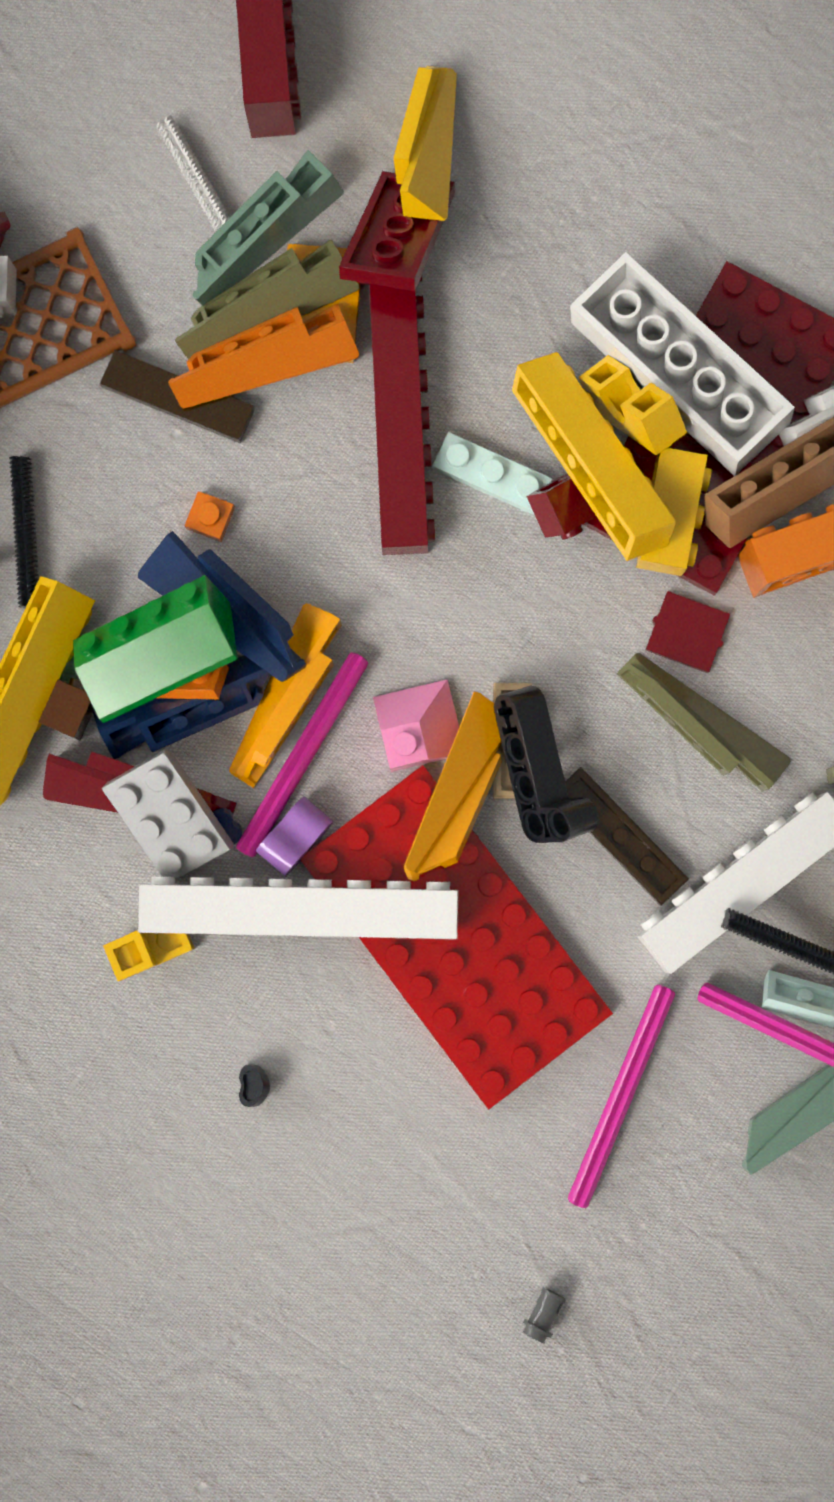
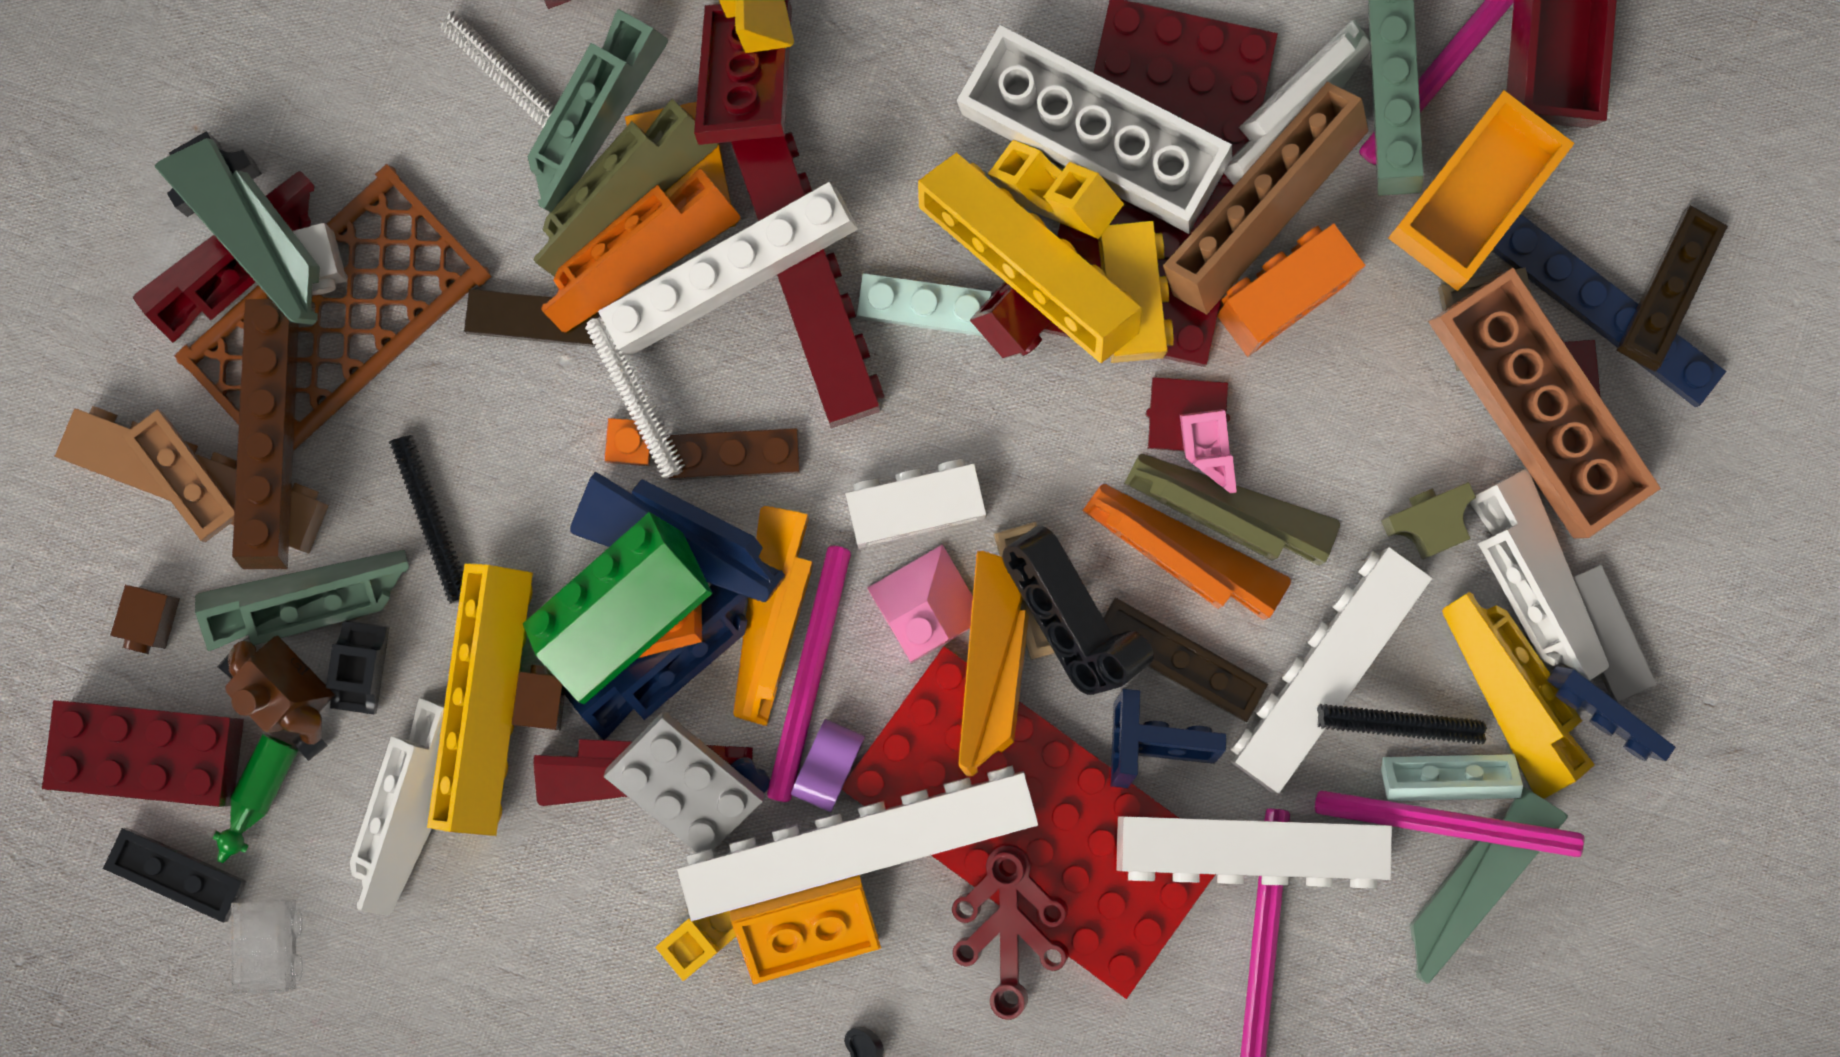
camera: 20 degrees left, 0 degrees up
(223, 477) = (635, 399): none -> white axle
(233, 968) = (805, 929): none -> light orange tile
(294, 552) = (737, 453): none -> reddish brown plate
(334, 392) = (728, 269): none -> white brick
(408, 1017) = (1011, 924): none -> dark red plant
(434, 637) = (915, 503): none -> white brick
(578, 897) = (1155, 740): none -> dark blue bracket
(635, 1014) = (1254, 849): none -> white brick
(653, 750) = (1189, 555): none -> orange wedge
(697, 662) = (1208, 446): none -> bright pink slope

